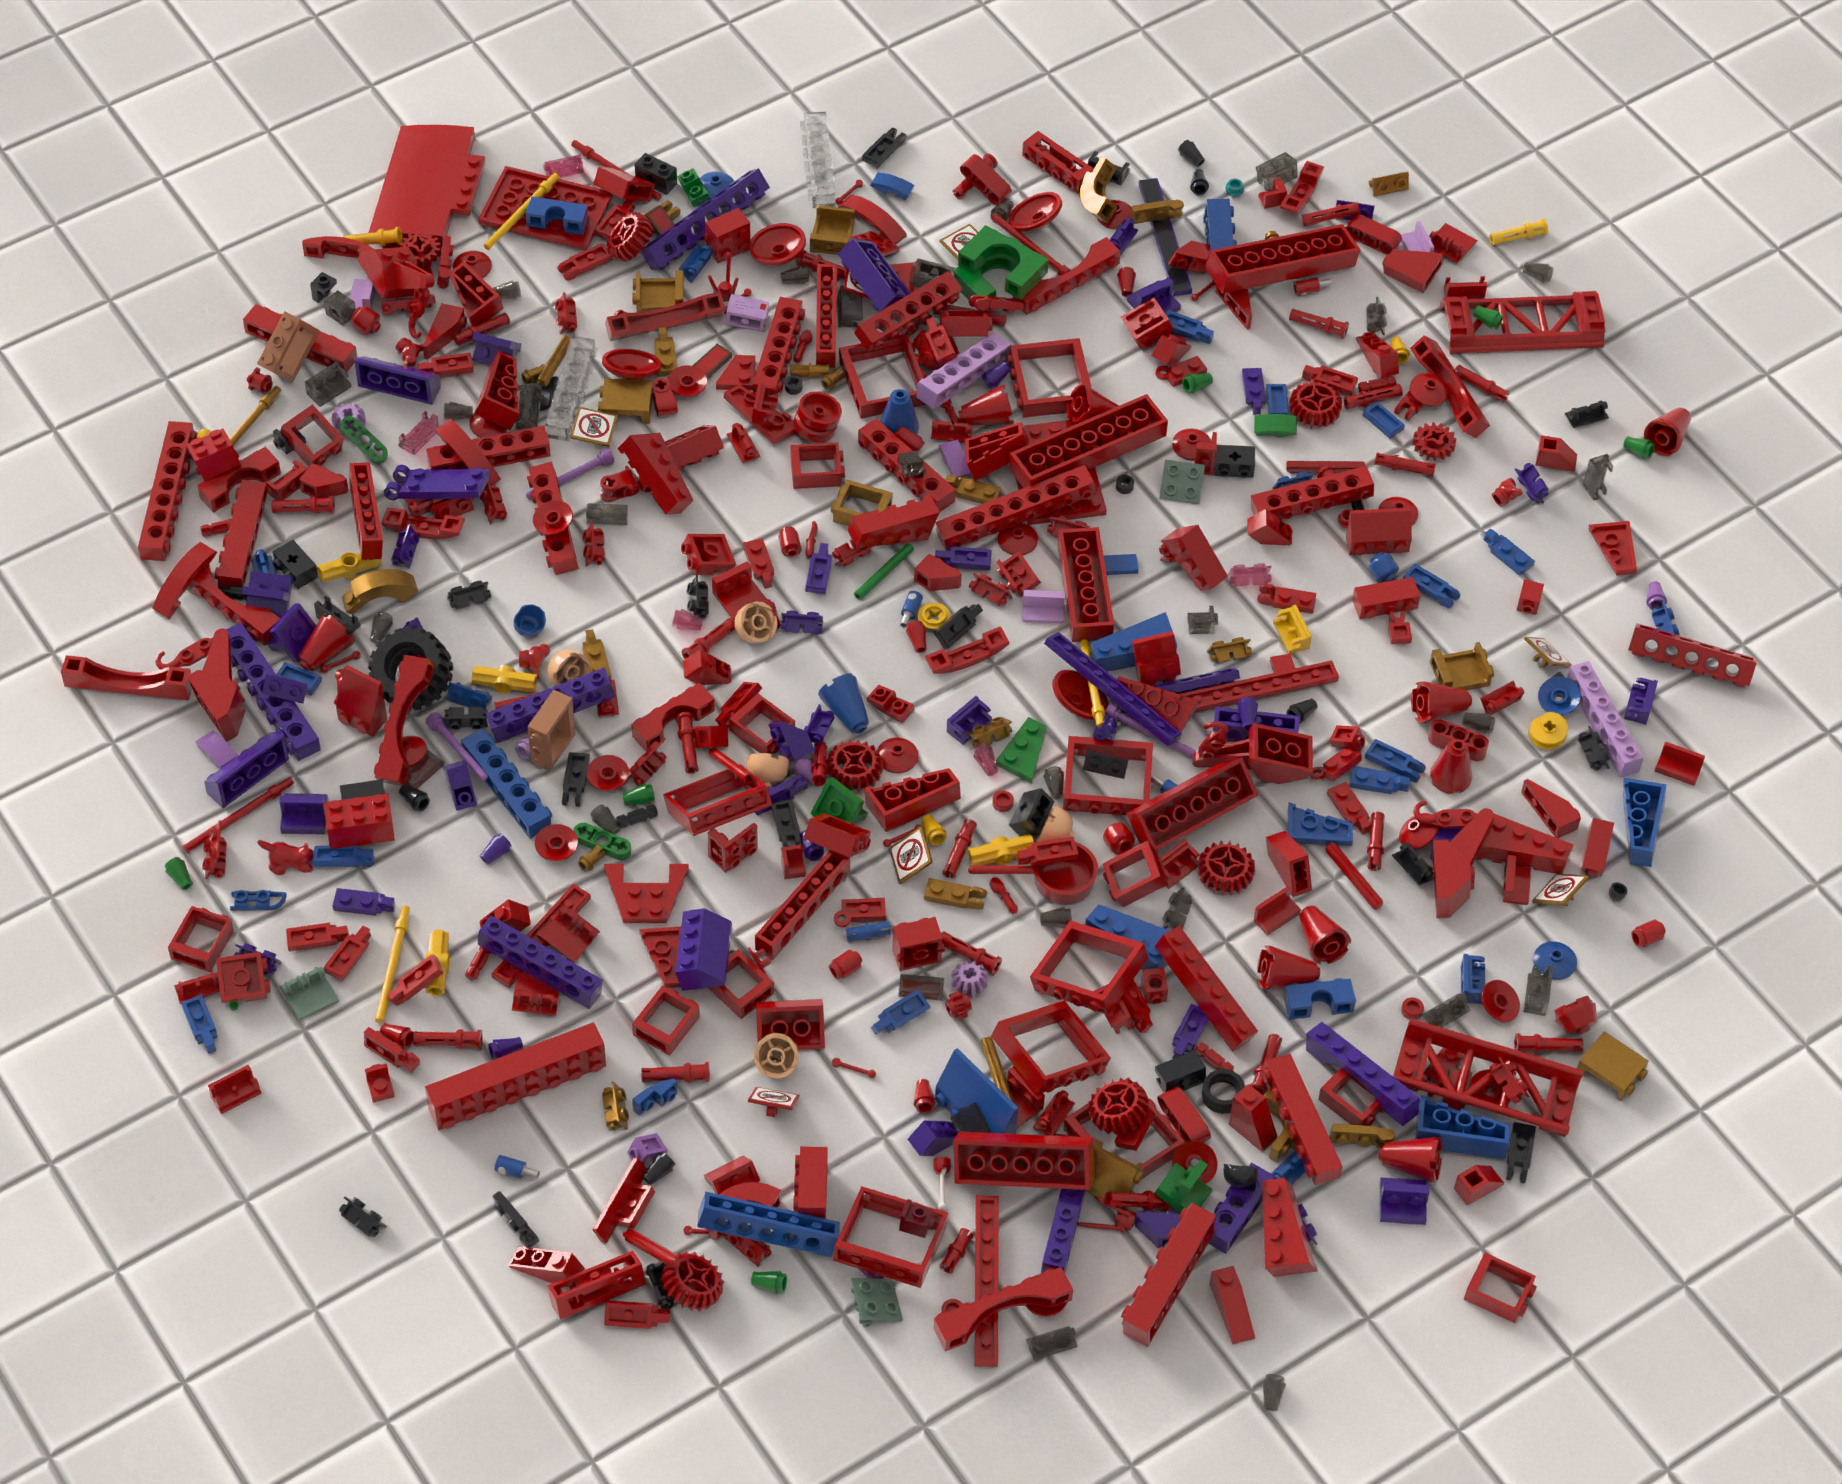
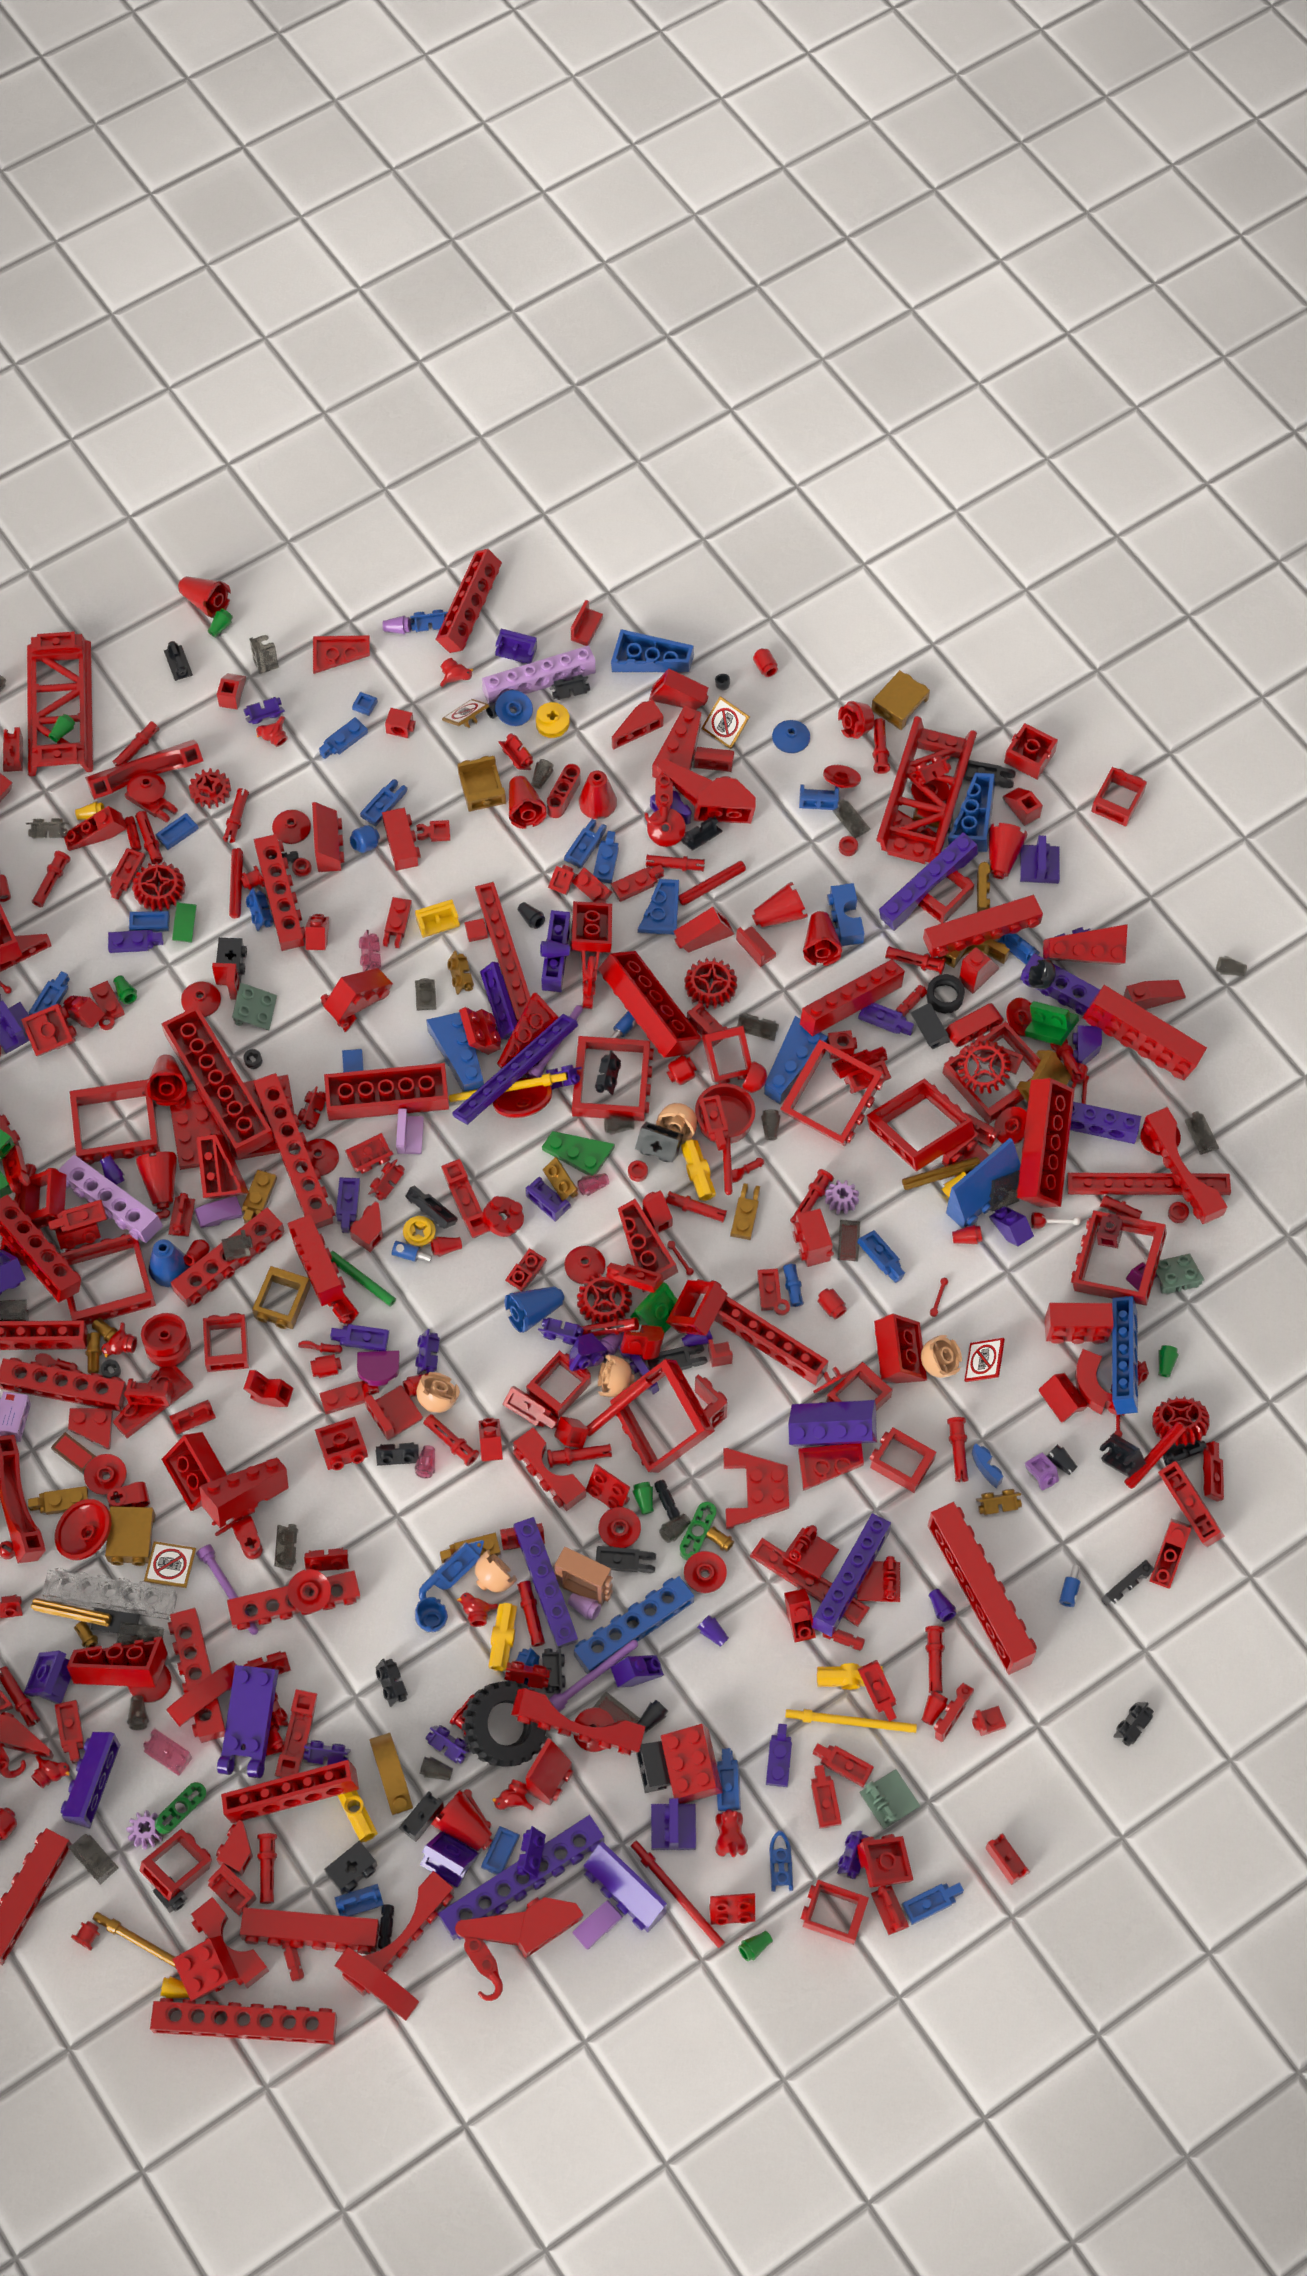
camera: 90 degrees left, 10 degrees up
(164, 683) = (511, 2030): red arch -> none
(269, 592) = (396, 1888): dark purple bracket -> none
(288, 346) = (57, 1895): nougat window -> none
(461, 686) = (536, 1674): none -> red hinge
(572, 636) = (453, 1568): none -> blue plate
(626, 1203) = (1102, 1482): red bracket -> none
(656, 1222) = (1122, 1455): none -> black hinge
(766, 494) = (268, 1391): none -> red brick
(787, 581) = (378, 1366): none -> magenta tile
(796, 791) = (644, 1343): none -> red brick
(818, 384) = (120, 1343): none -> red animal
(868, 779) = (635, 1276): none -> red hinge
(910, 855) = (710, 1246): piece -> none
(933, 830) = (676, 1229): yellow cone -> none
(949, 806) = (657, 1211): none -> red slope
(957, 674) = (510, 1208): none -> red plate
(958, 1005) = (872, 1205): red gear -> none
(1102, 891) = (755, 1078): none -> red hair
(1538, 991) = (827, 747): clear smoke hinge -> none
(1551, 1193) = (1030, 751): none -> red brick
(1554, 571) = (364, 703): none -> blue tile
(1601, 644) = (454, 672): none -> red animal

